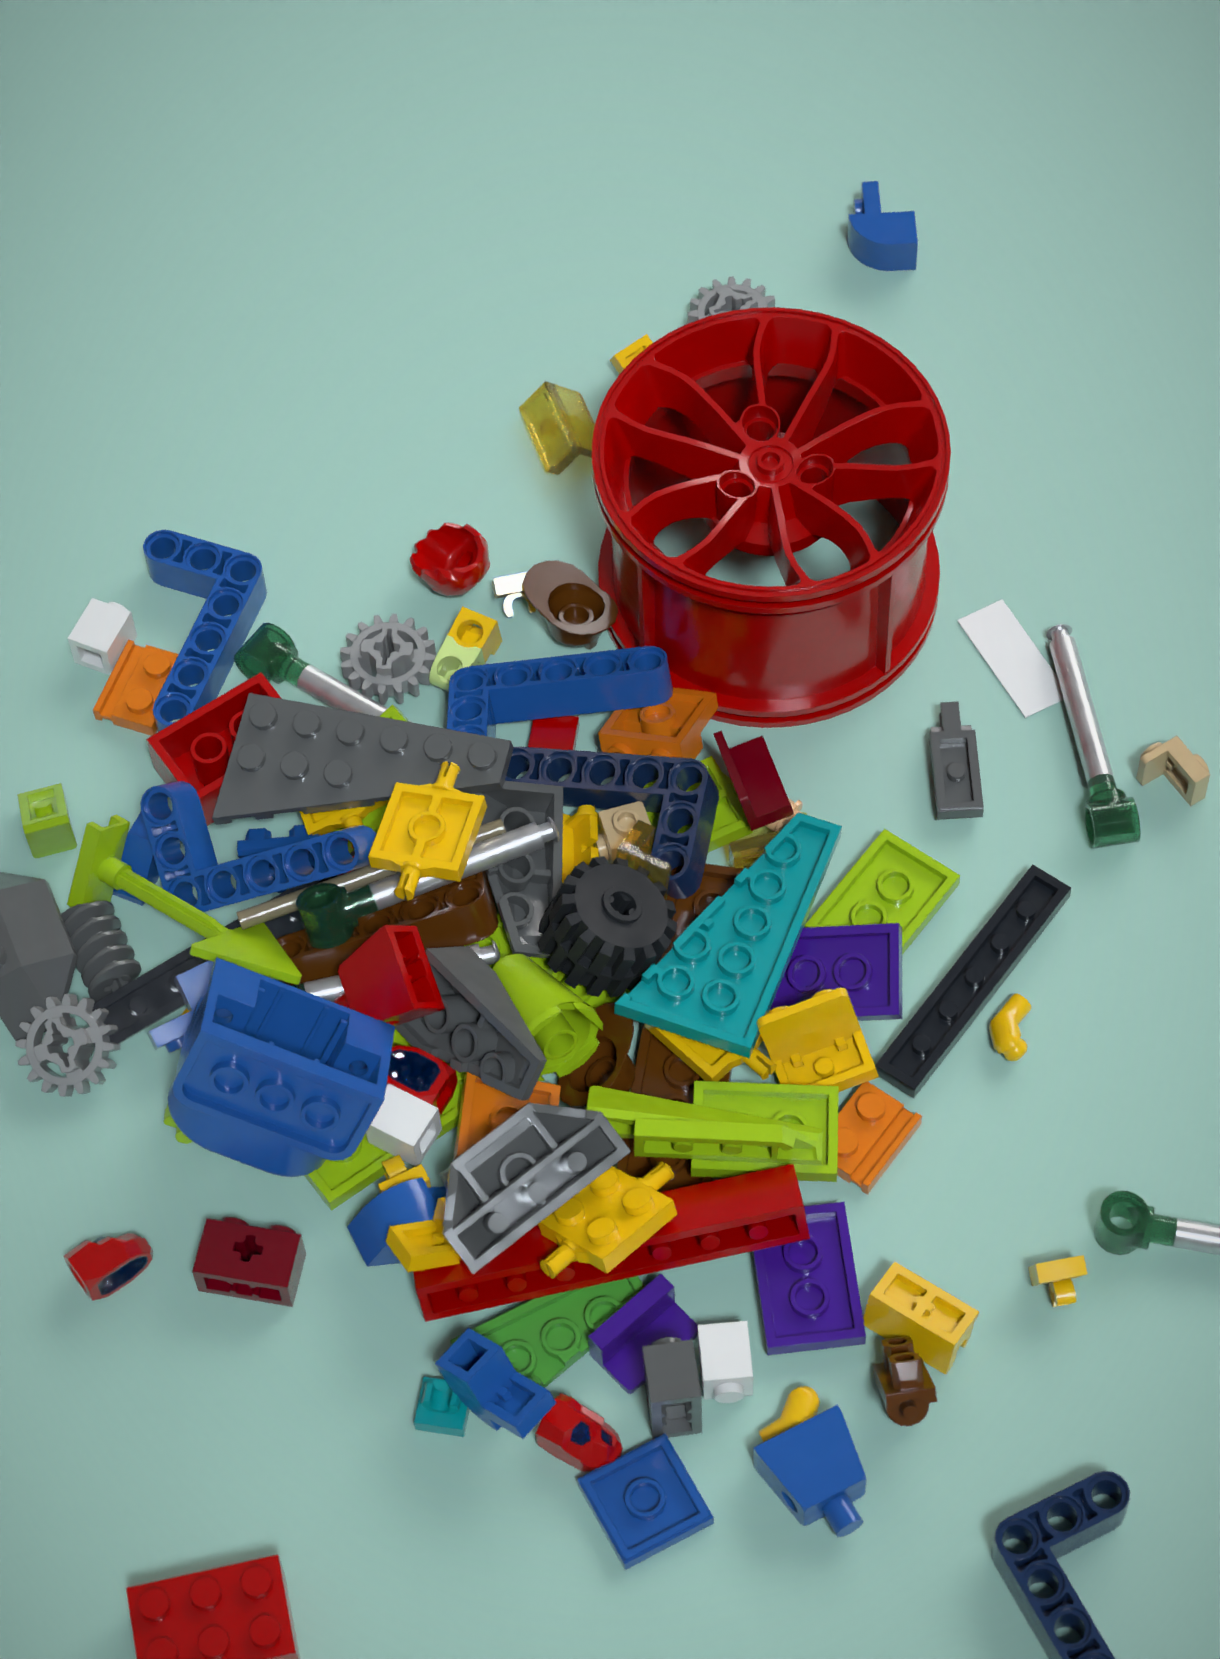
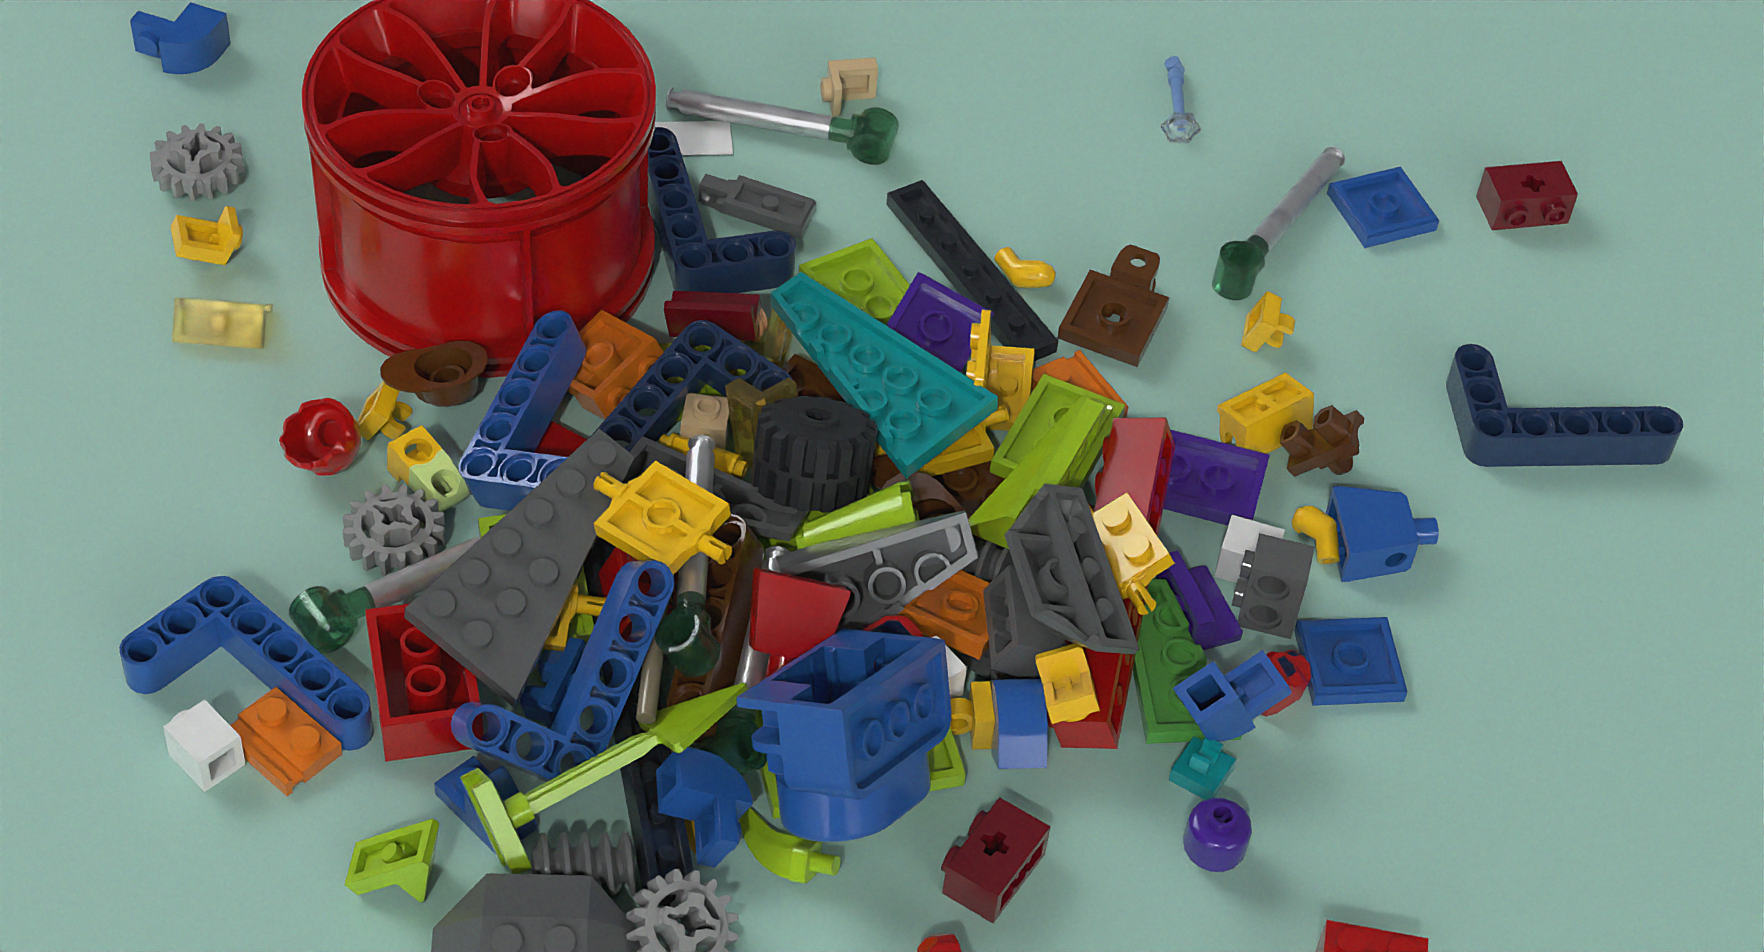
camera: 75 degrees left, 10 degrees down
(354, 1437) = (1217, 834): none -> dark purple head
(886, 718) = (692, 259): none -> dark blue beam
(1024, 1130) = (1124, 293): none -> reddish brown plate

